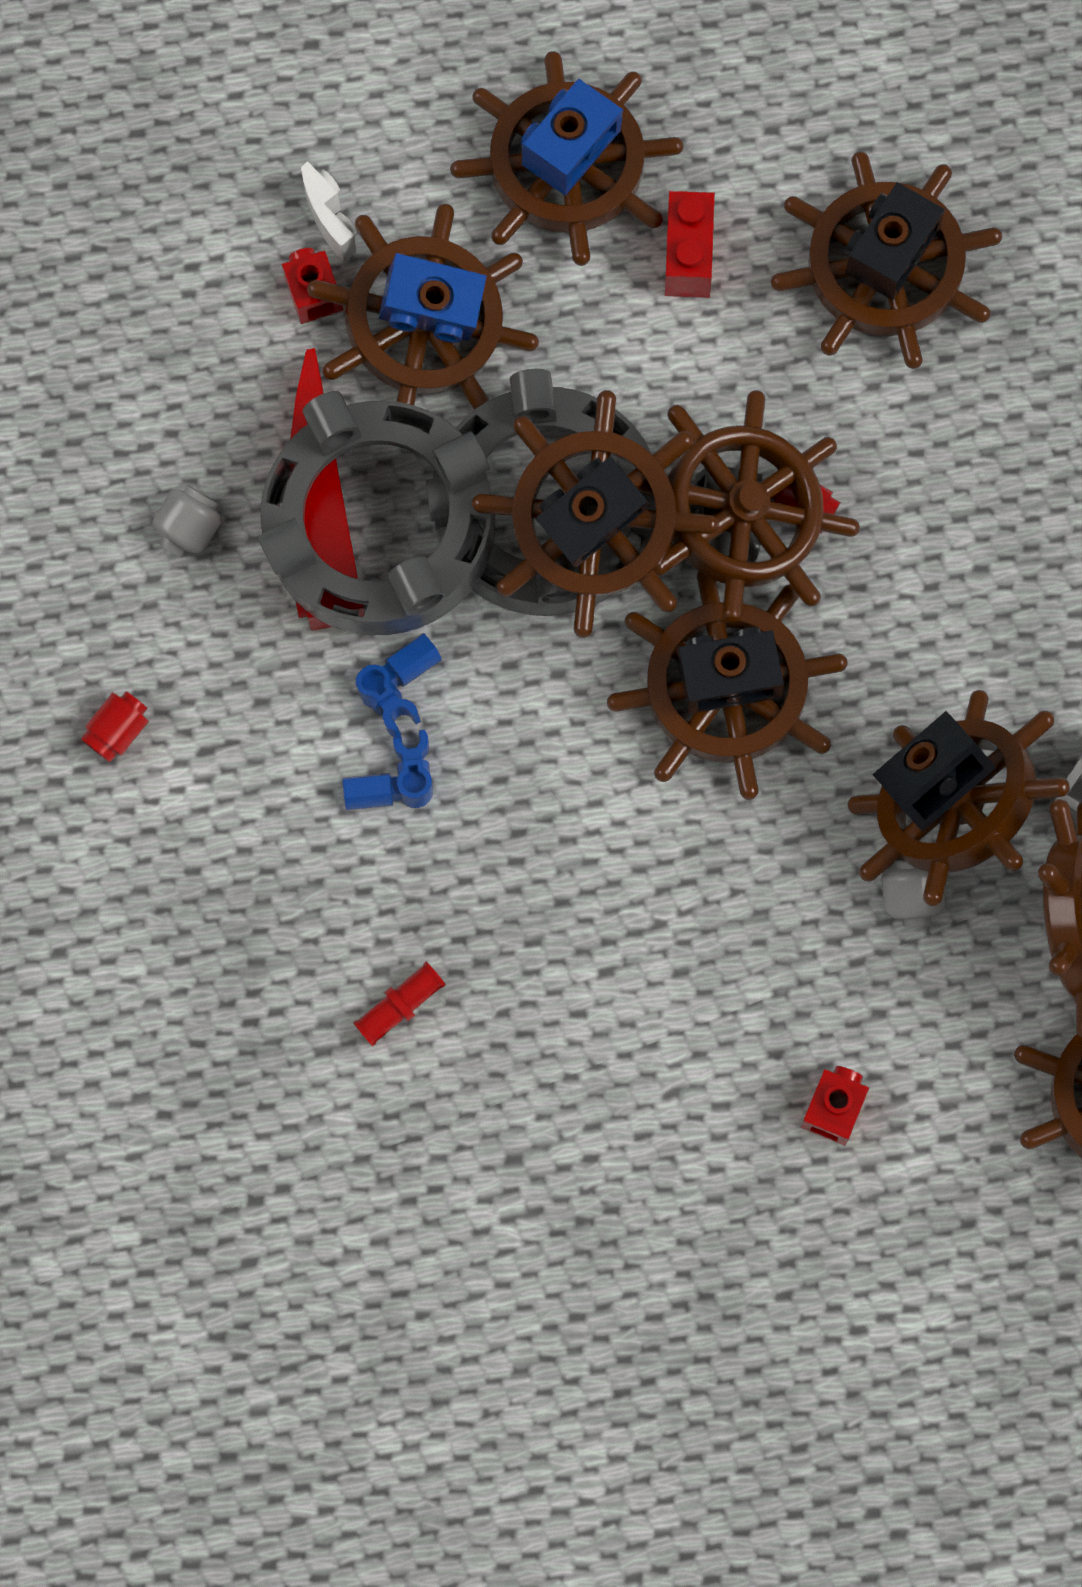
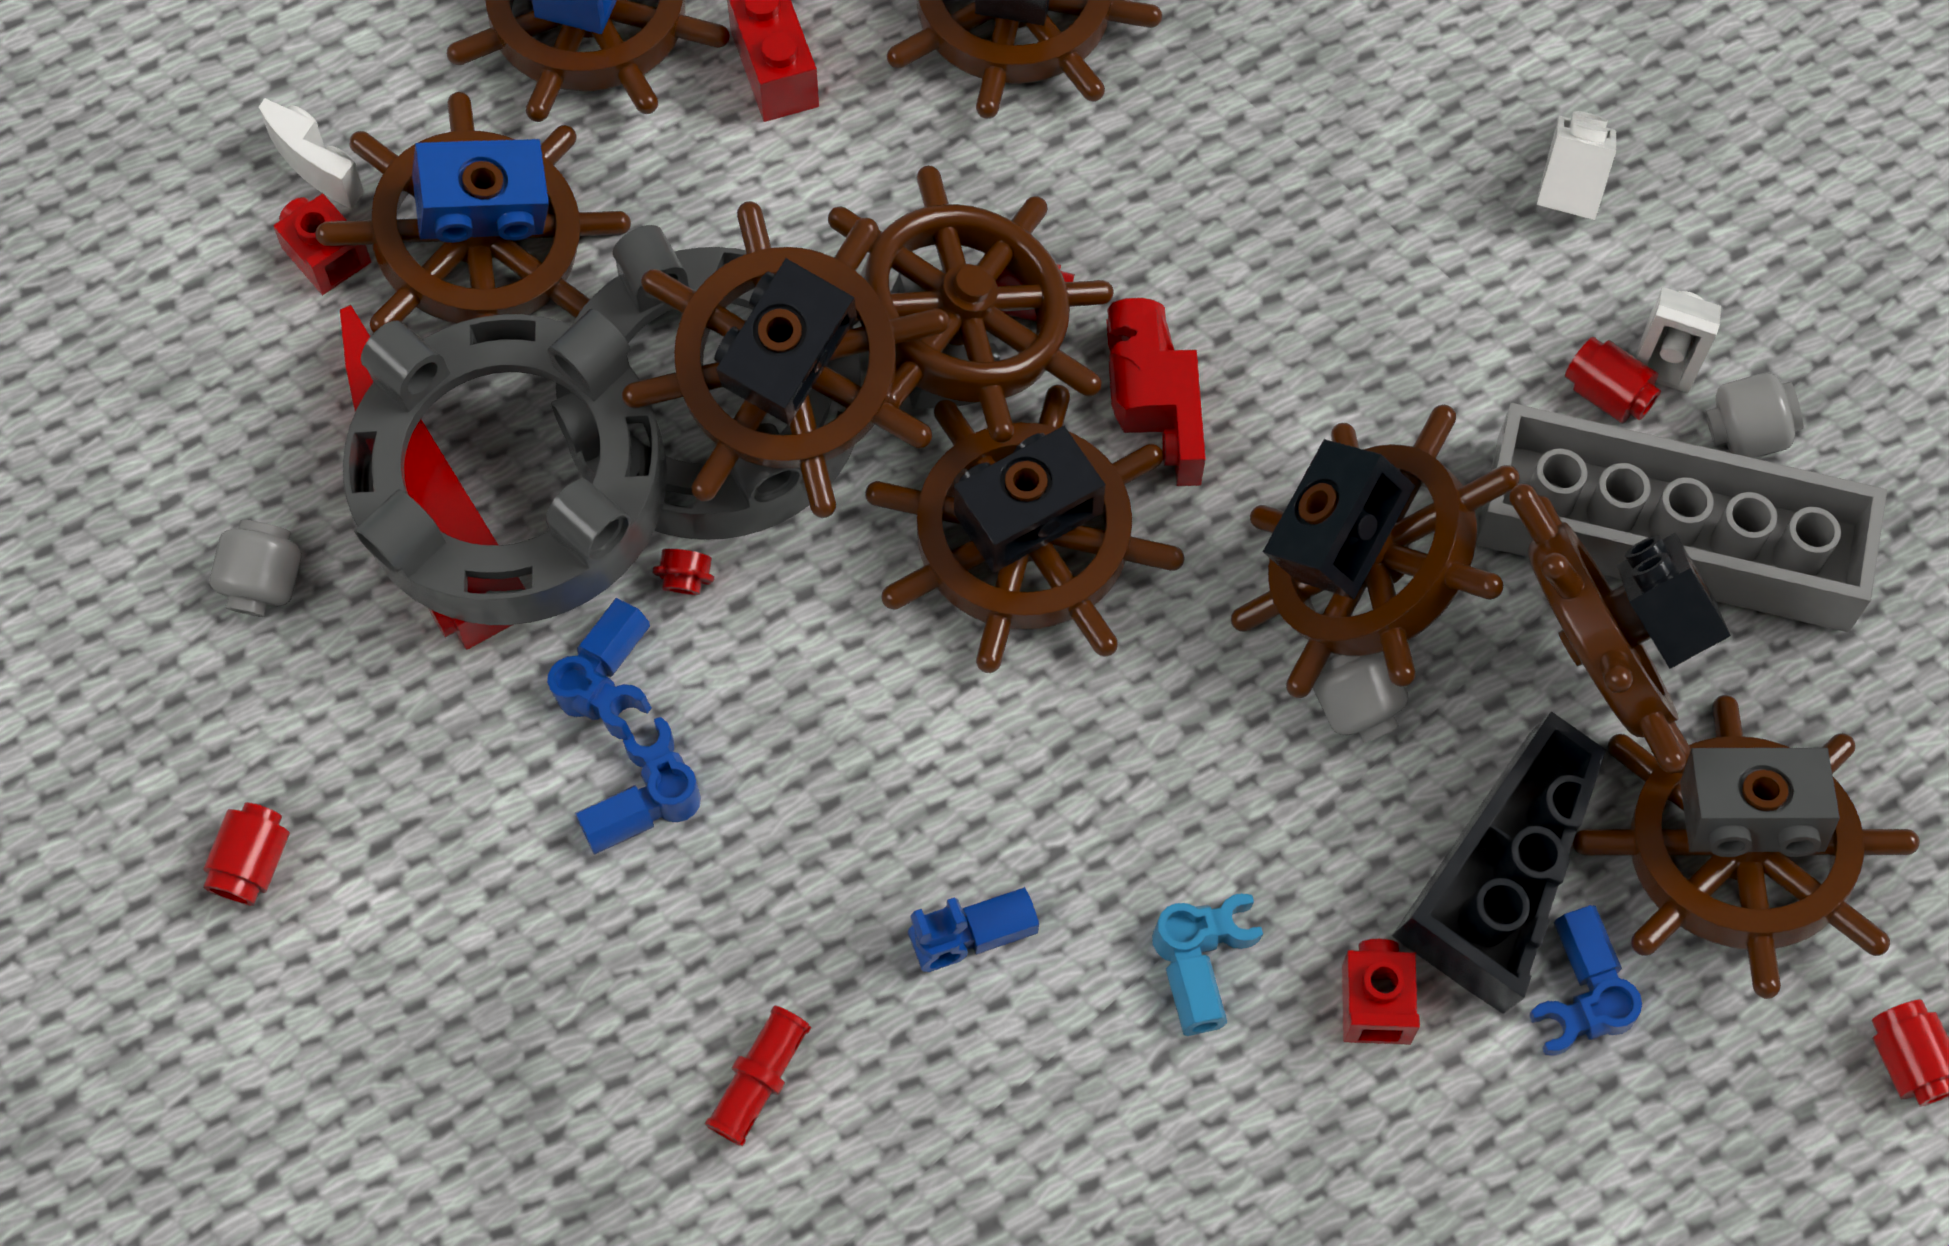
camera: 25 degrees left, 10 degrees down
(478, 629) = (684, 571): none -> red plate
(558, 957) = (946, 934): none -> blue bar
(717, 1015) = (1181, 938): none -> dark azure bar
(864, 608) = (1156, 385): none -> red plate
(959, 1051) = (1499, 880): none -> black wedge
(989, 1172) = (1611, 1002): none -> blue bar

